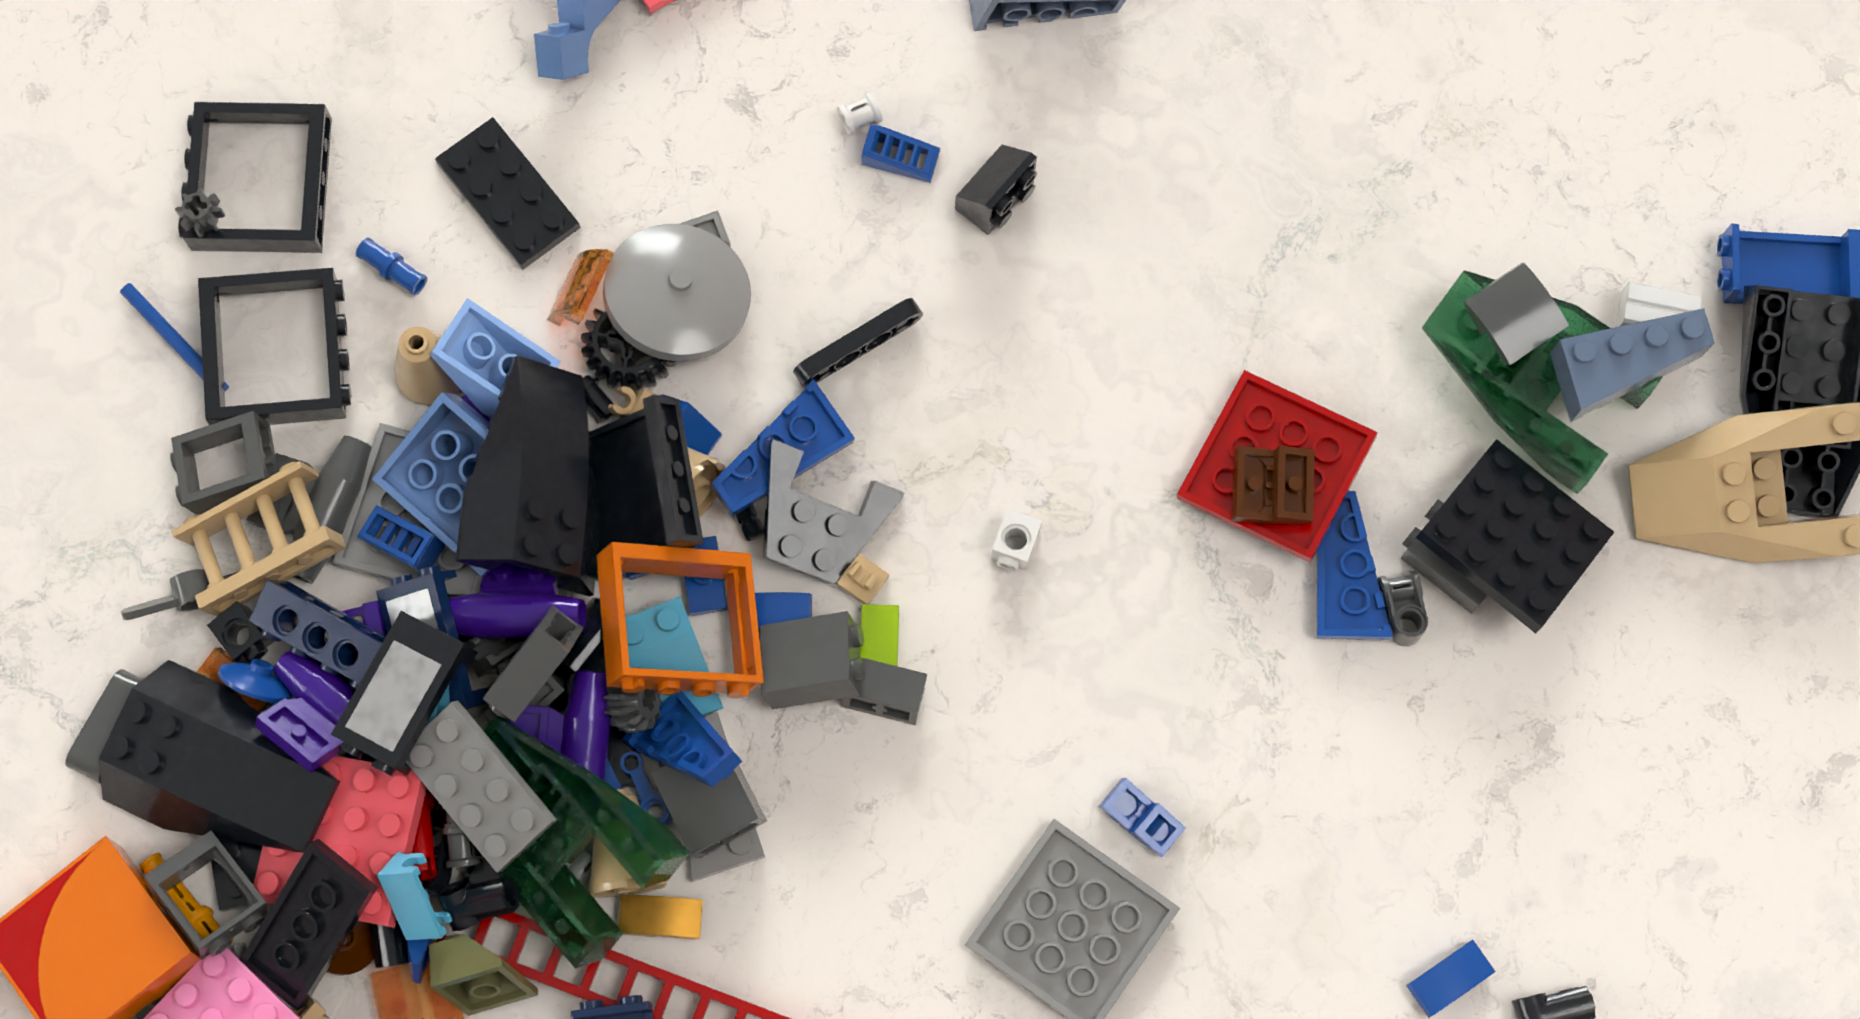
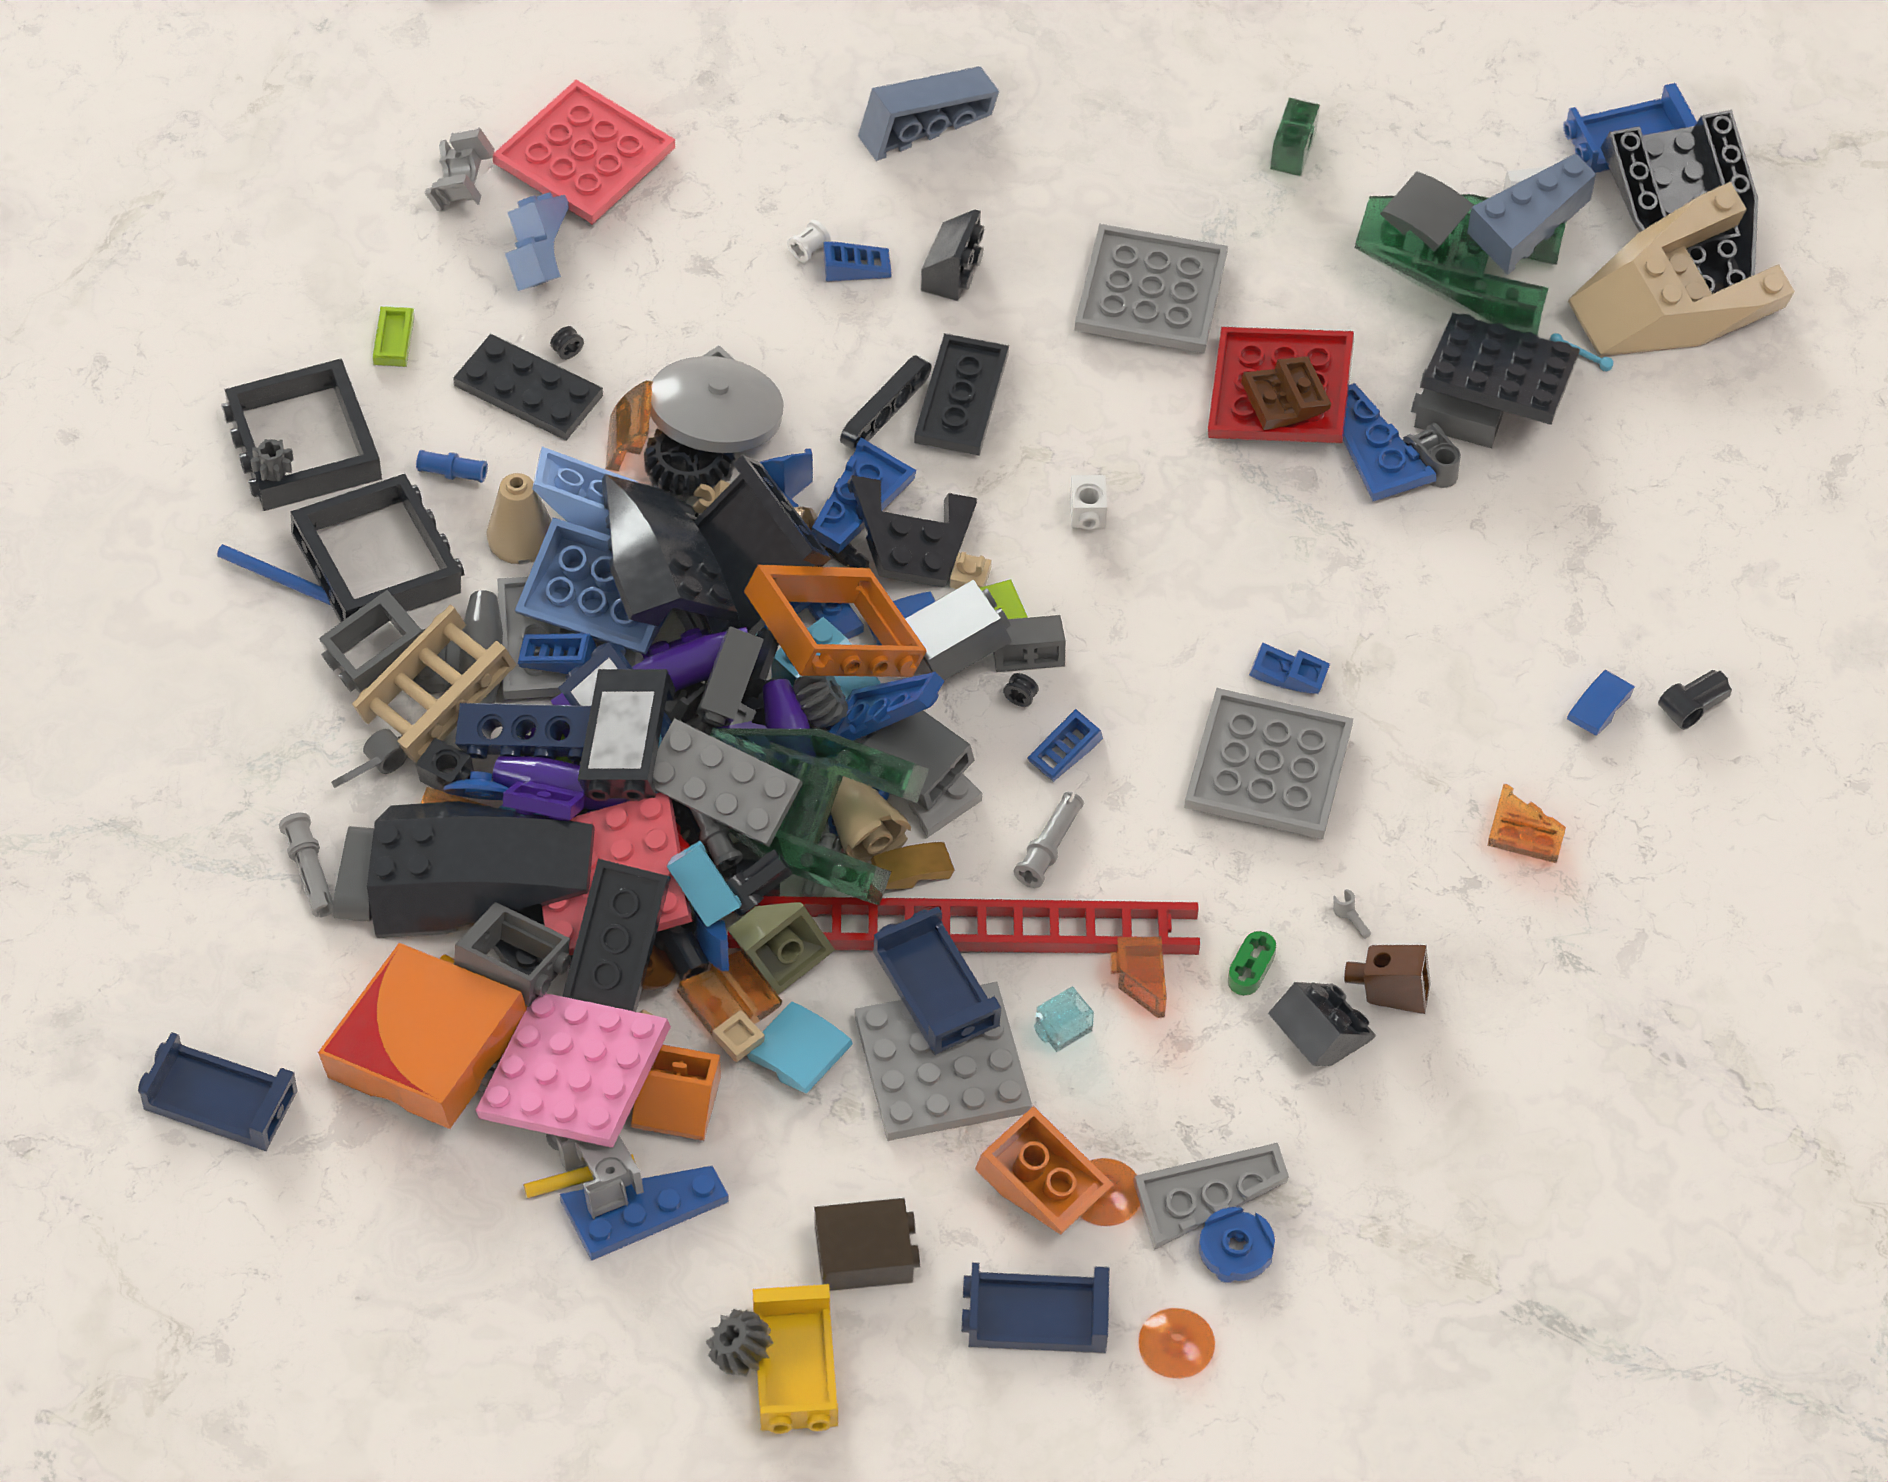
camera: 20 degrees left, 20 degrees down
(68, 678) = (304, 851): none -> light grey pin
(397, 84) = (393, 336): none -> lime tile
(564, 155) = (567, 342): none -> black bush
(713, 402) = (791, 472): none -> blue slope
(797, 949) = (1043, 850): none -> light grey pin
(853, 745) = (1020, 689): none -> black bush
(903, 813) = (1065, 730): none -> blue slope
(941, 358) = (961, 394): none -> black plate
(1192, 293) = (1151, 288): none -> light grey plate
(1421, 155) = (1295, 136): none -> clear green brick
(1637, 551) = (1605, 363): none -> medium azure hinge

